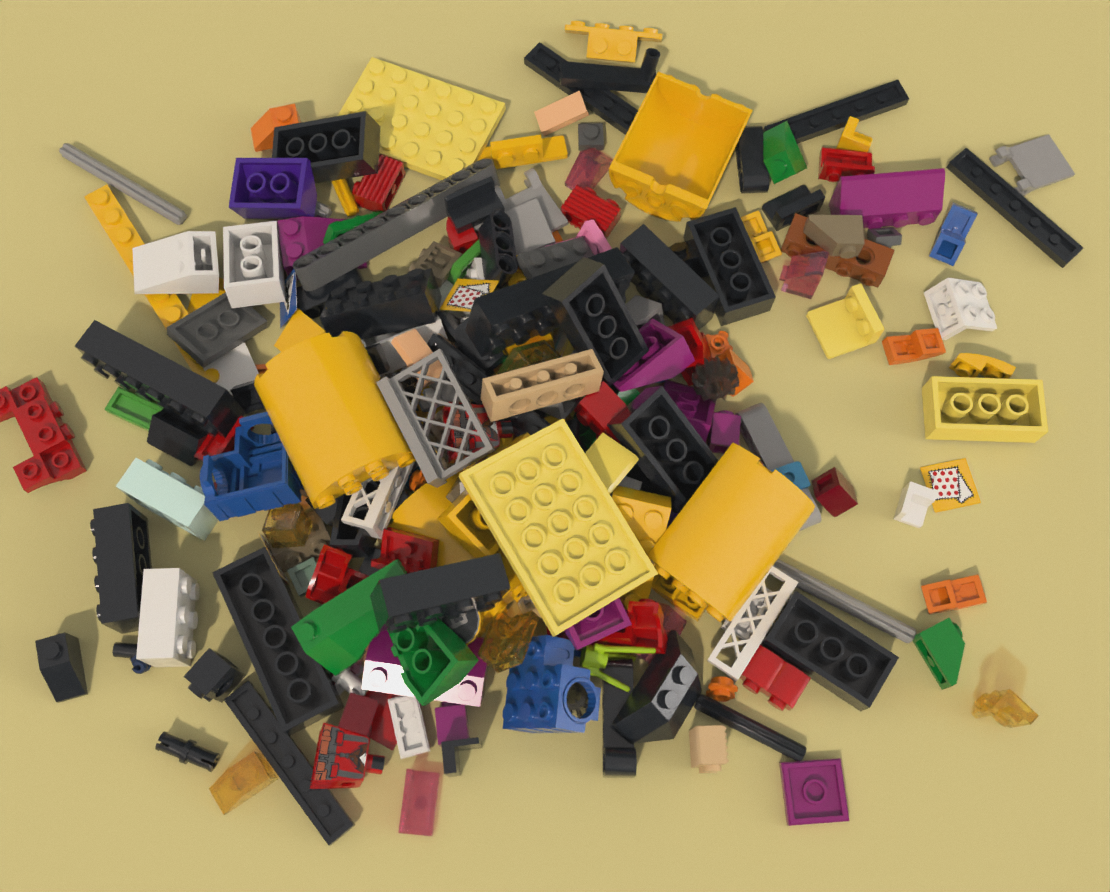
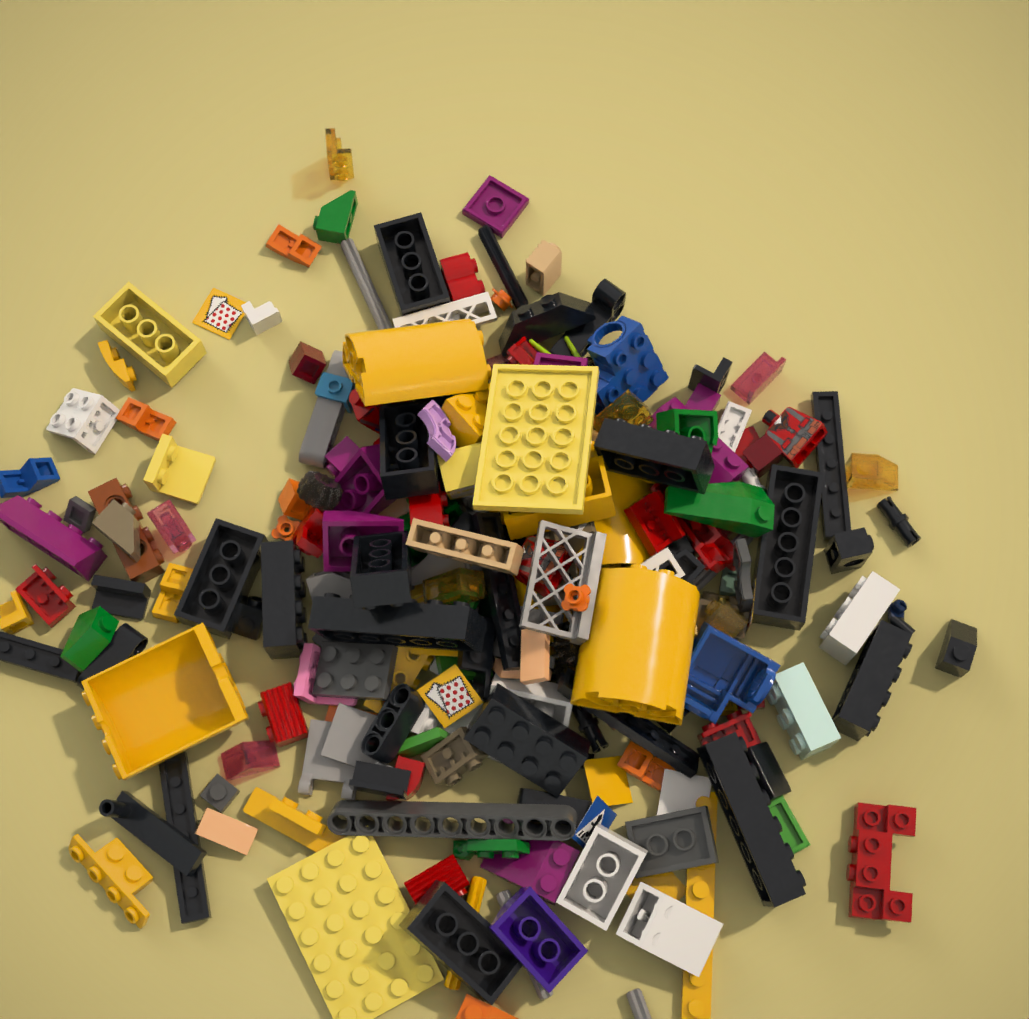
camera: 140 degrees left, 0 degrees up
(293, 568) = (742, 585): none -> dark grey tile
(410, 410) = (581, 603): none -> orange plate
(652, 477) = (438, 428): none -> lavender tile

